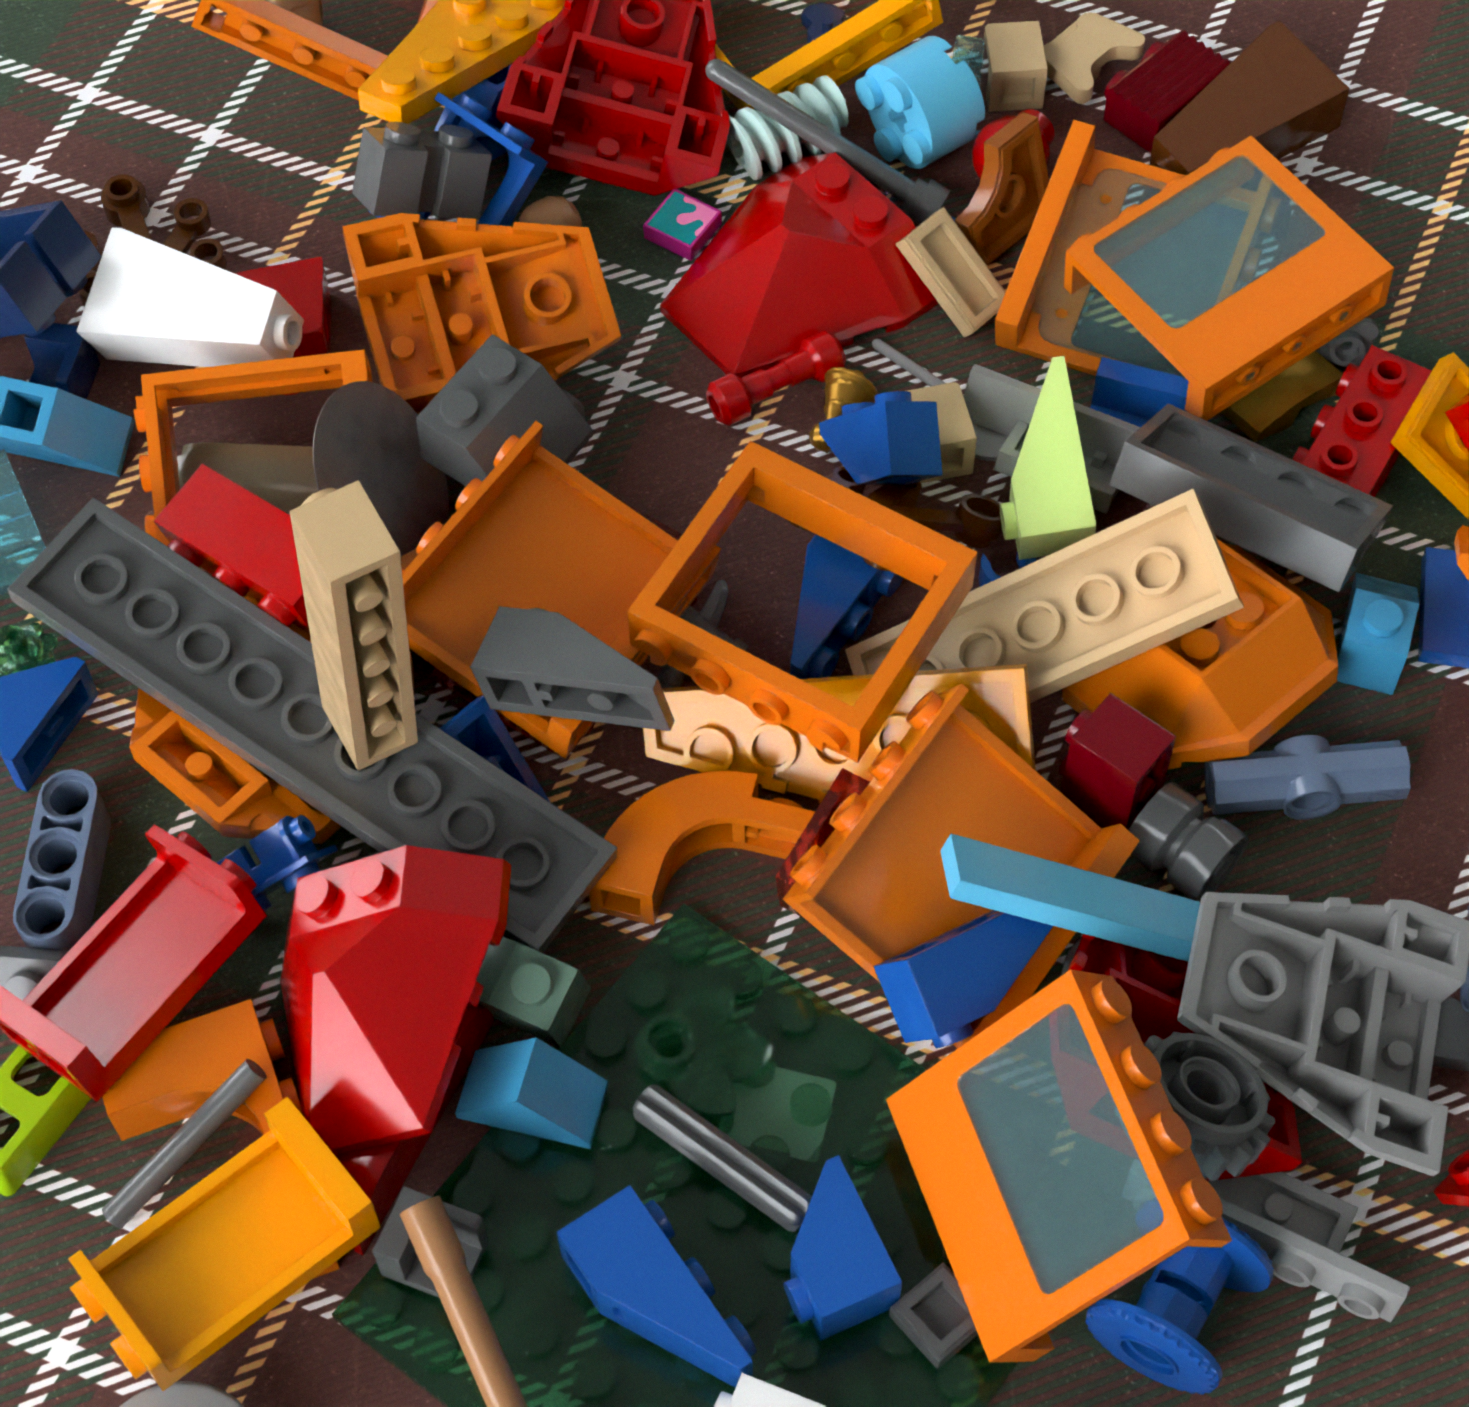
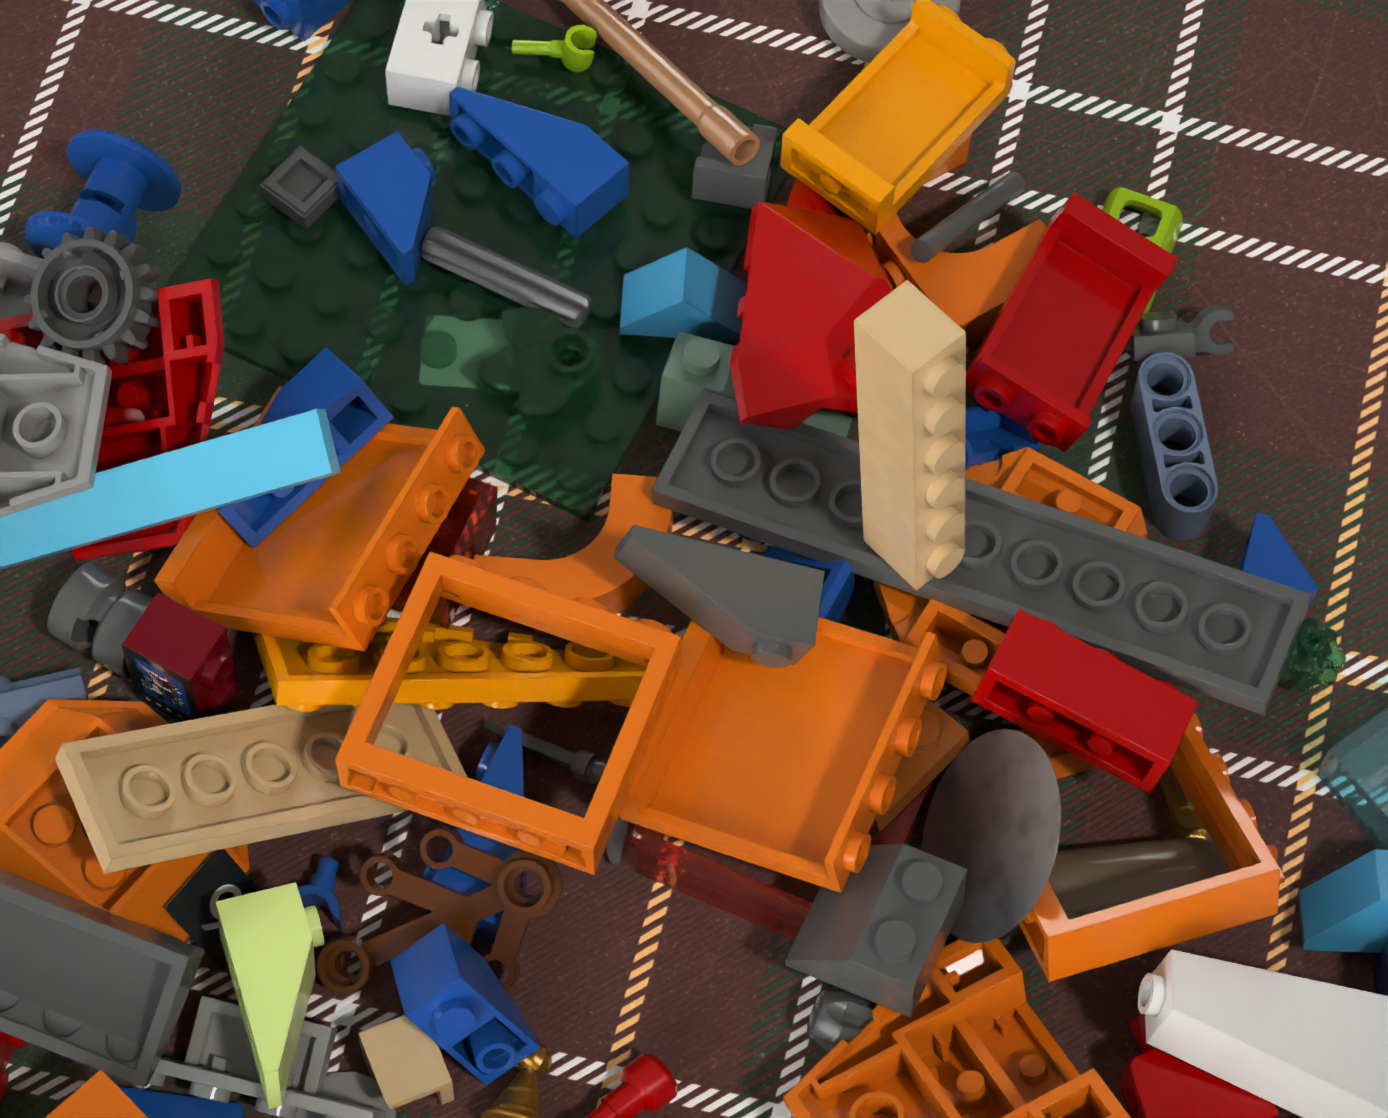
camera: 165 degrees right, 5 degrees up
(1053, 1163) = (210, 228): panel -> none

